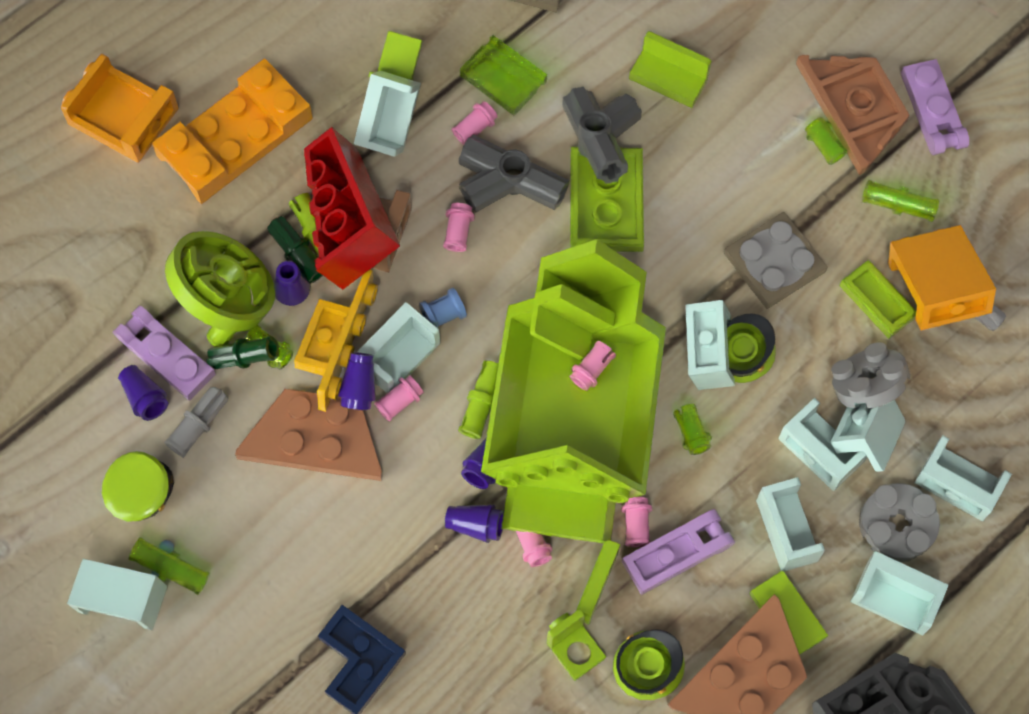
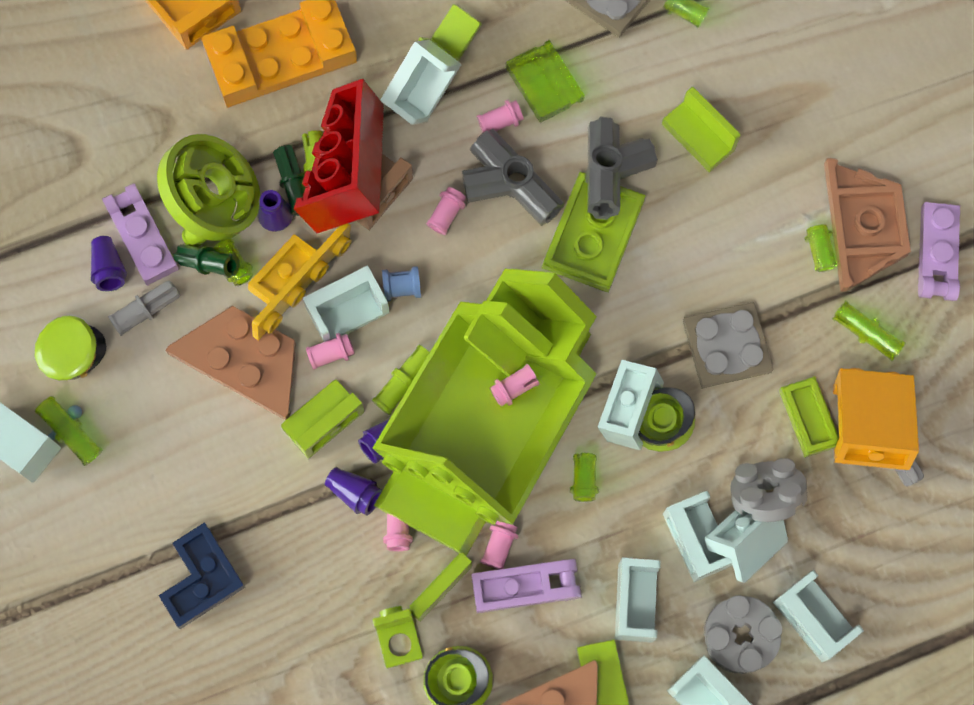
camera: 20 degrees right, 5 degrees up
(358, 383) = (295, 325): dark purple cone -> none
(416, 465) = (322, 418): none -> lime panel

